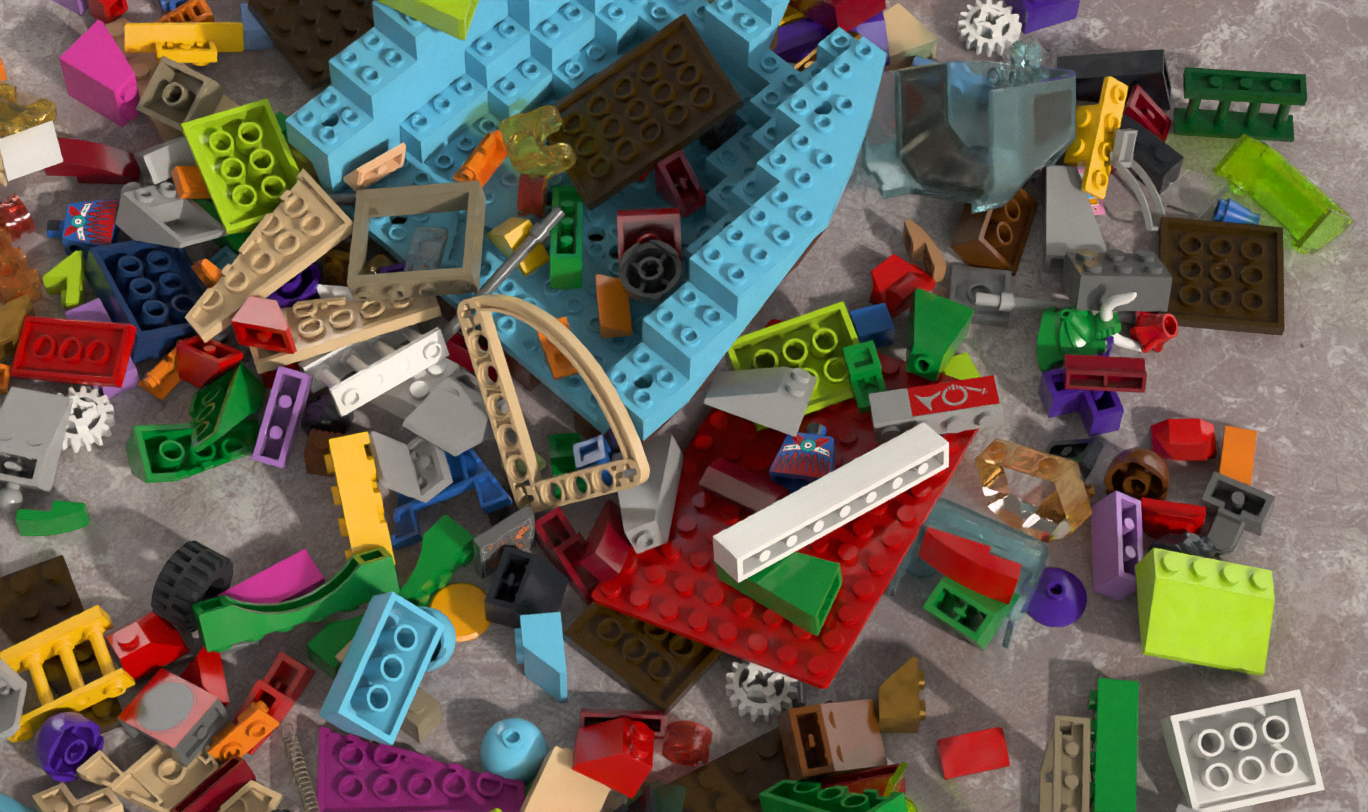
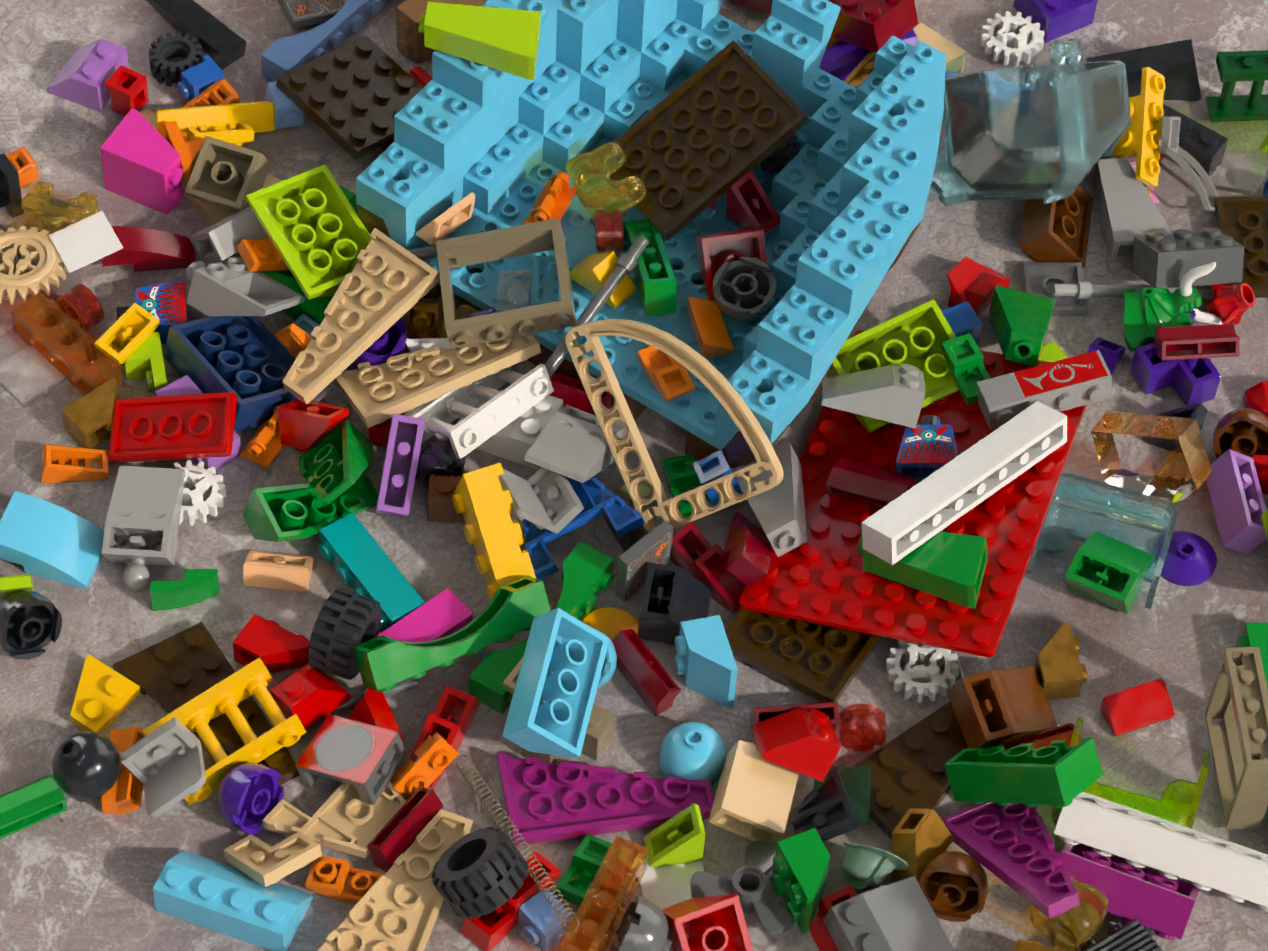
camera: 10 degrees left, 5 degrees down
(48, 250) = (127, 333): none -> yellow slope
(119, 587) = (273, 644): none -> red slope
(143, 63) = (187, 149): none -> orange slope
(149, 508) = (277, 571): none -> light nougat slope
(234, 520) = (367, 569): none -> teal brick
(263, 326) = (368, 380): red slope -> none
(482, 656) = (644, 672): none -> dark red piece
(922, 247) = (990, 248): medium nougat slope -> none
(970, 564) = (1105, 530): red slope -> none
(1015, 372) = (1110, 352): none -> dark purple slope
(1147, 113) = (1182, 101): dark red slope -> none

